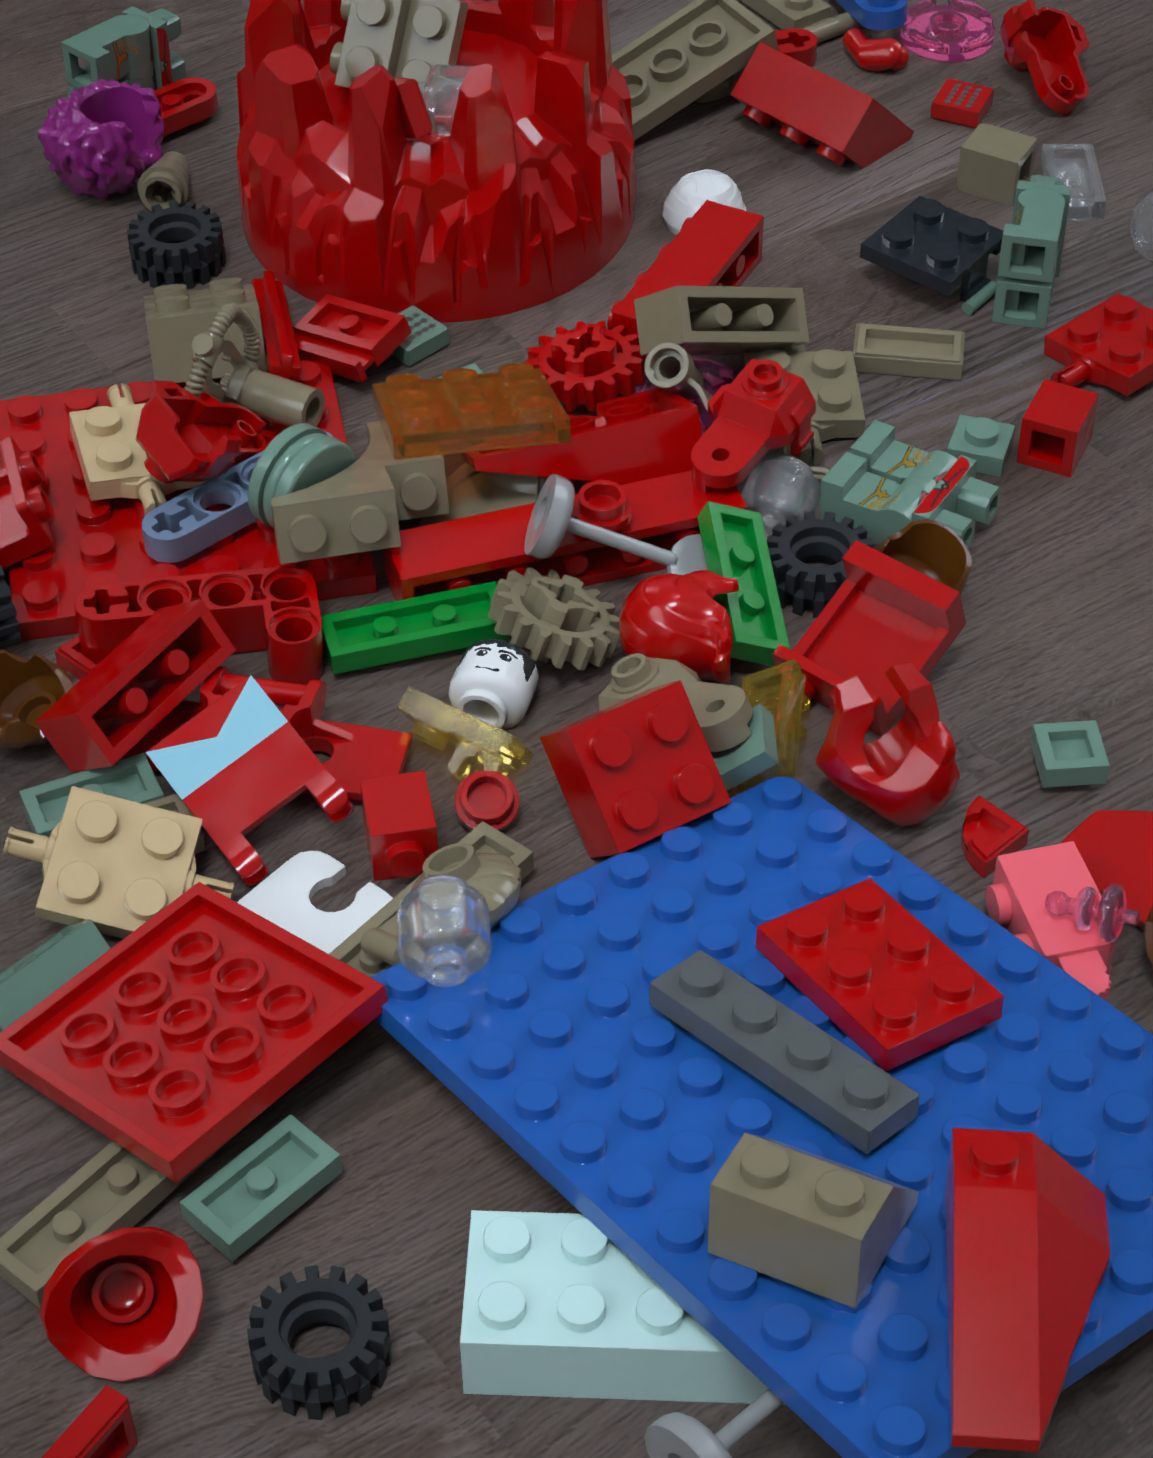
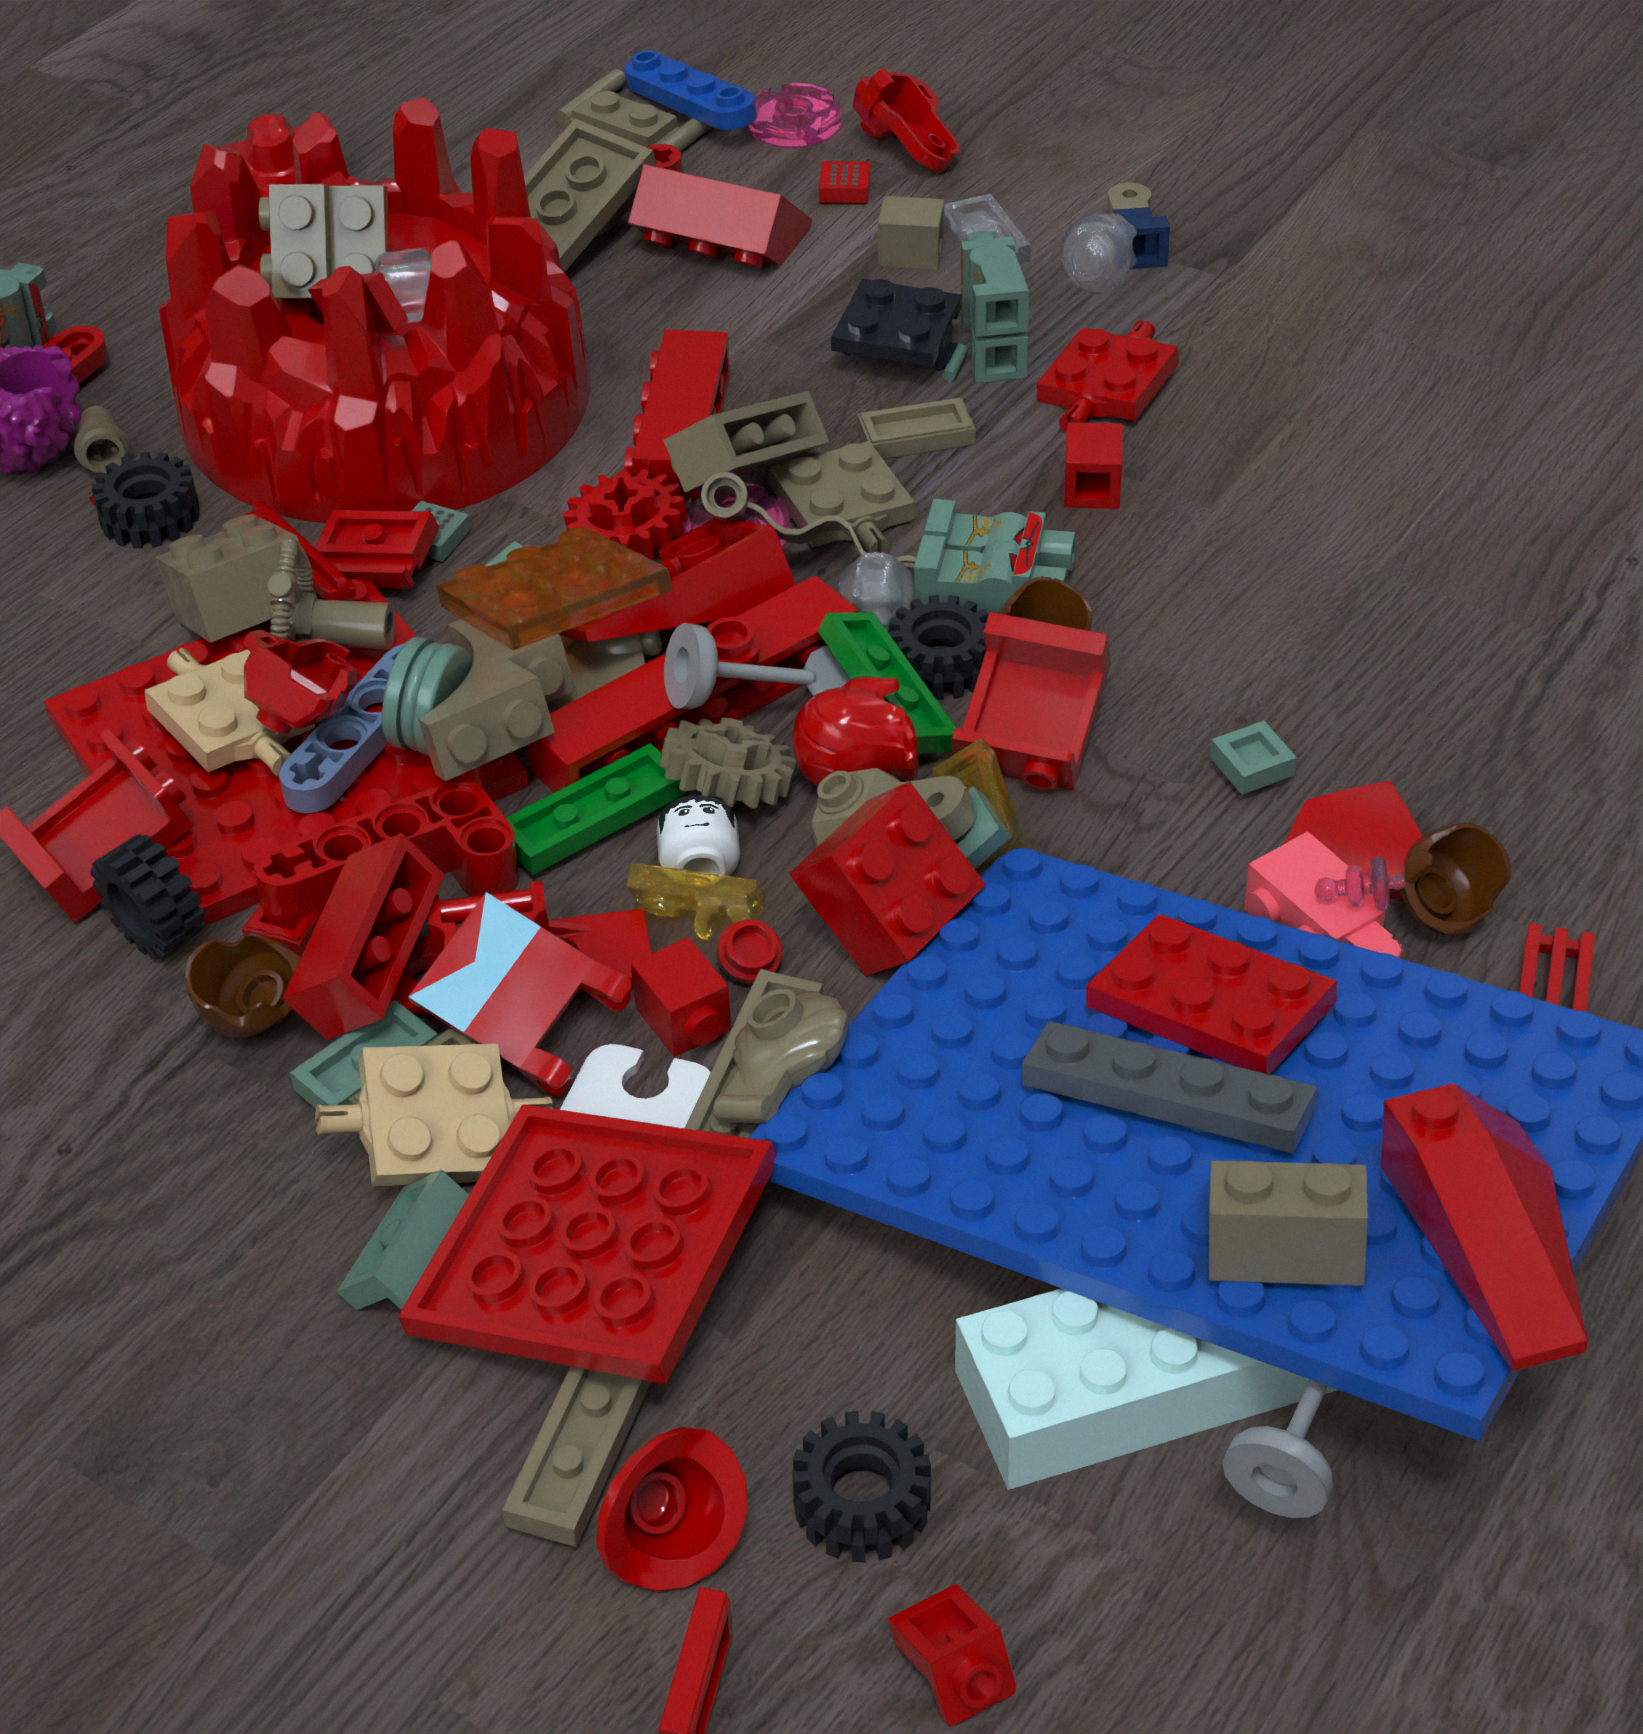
camera: 20 degrees left, 0 degrees up
(261, 1187) = (730, 1366): sand green plate -> none
(444, 931) = (809, 1073): clear head -> none
(693, 191) = (642, 331): white piece -> none
(750, 416) = (827, 524): red piece -> none
(875, 54) = (738, 153): red arm -> none
(905, 771) = (1118, 808): red piece -> none
(984, 441) = (1028, 493): sand green plate -> none
(988, 834) = (1217, 851): red tile -> none

